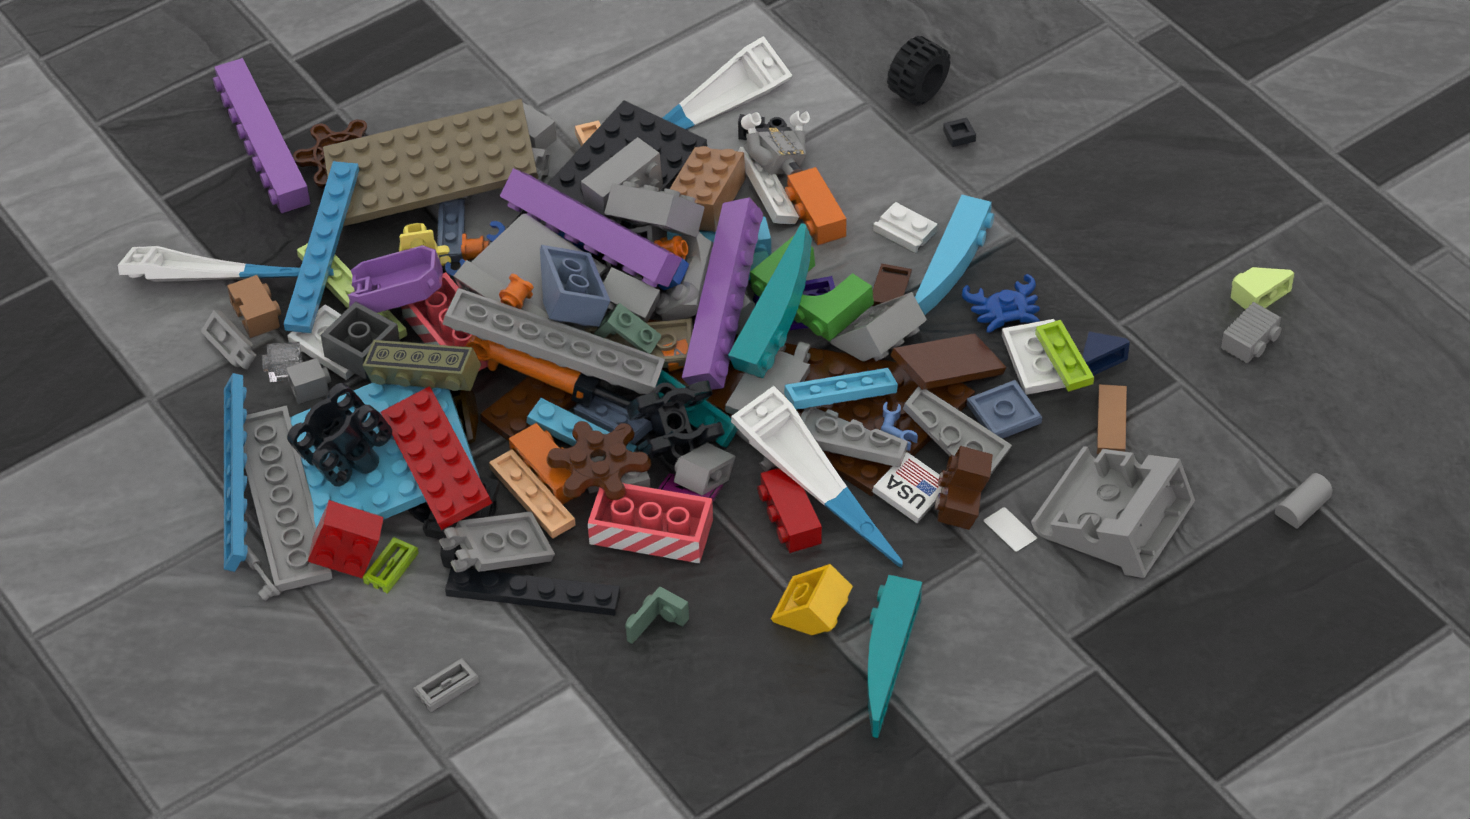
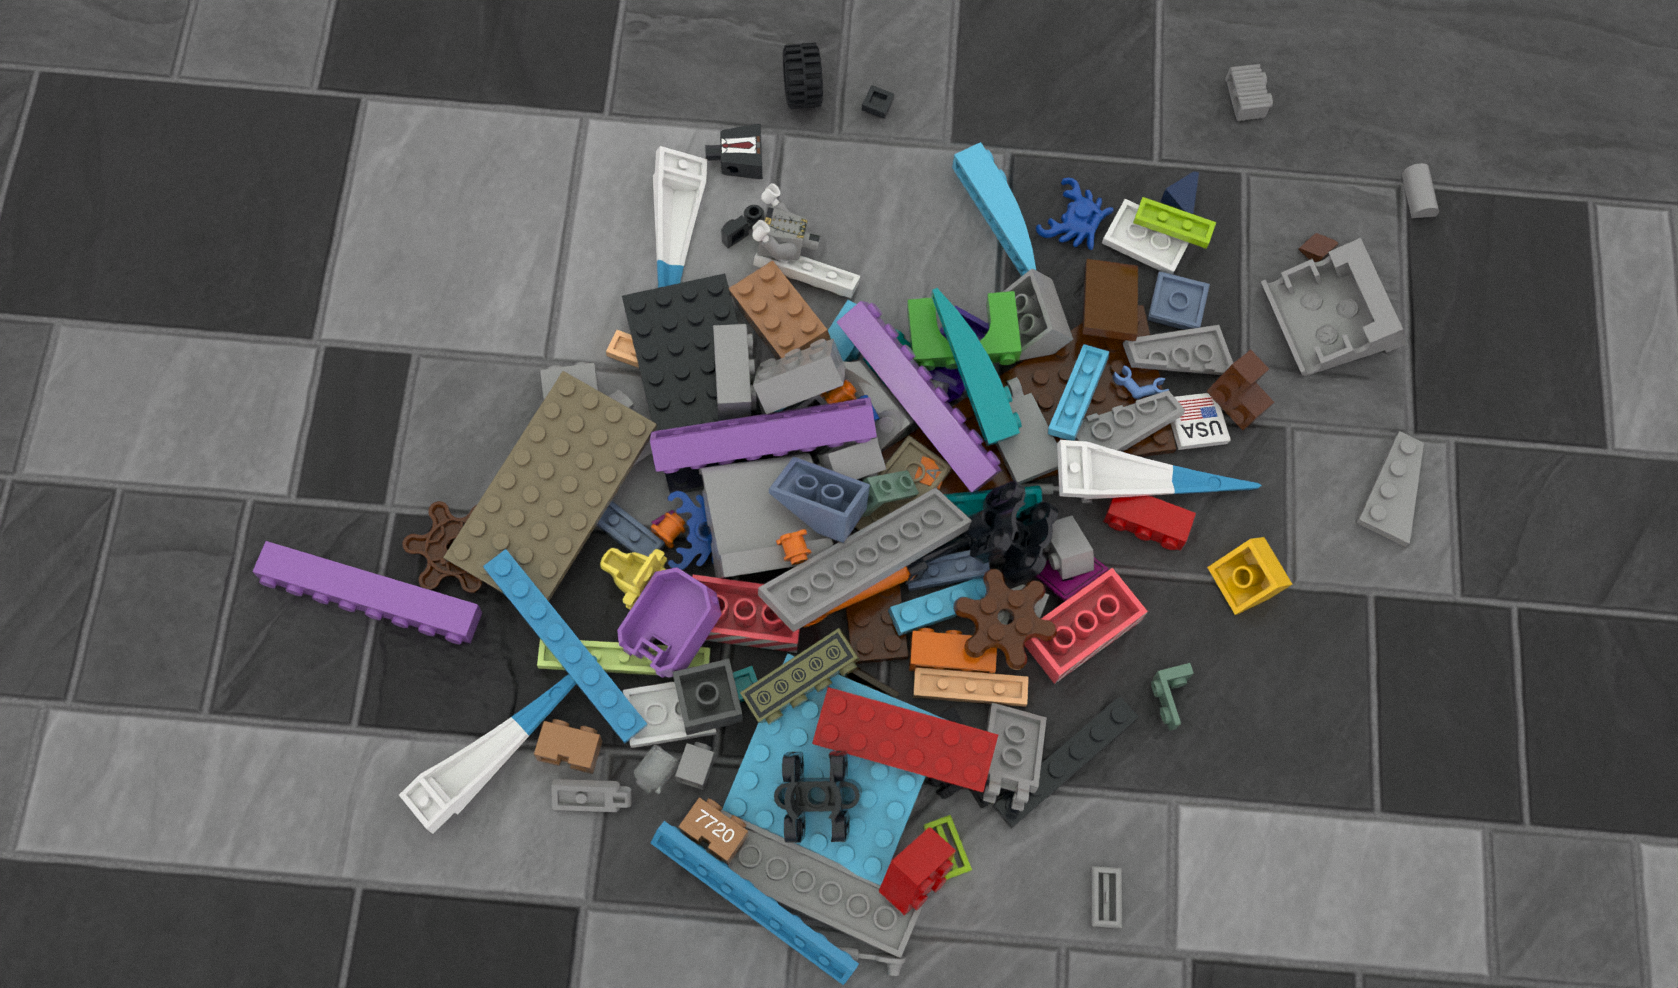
camera: 55 degrees left, 20 degrees up
(265, 413) = (710, 825): none -> medium nougat brick
(816, 206) = (862, 255): orange brick -> none
(821, 88) = (739, 152): none -> black torso
(888, 642) = (1335, 559): teal slope -> none
(889, 284) = (986, 273): reddish brown piece -> none
(905, 227) = (935, 215): white plate -> none
(986, 656) = (1394, 492): none -> light grey wing
(1010, 529) = (1285, 388): white sticker -> none
(1111, 418) = (1245, 243): medium nougat tile -> none
(1261, 286) = (1212, 53): yellowish green slope -> none

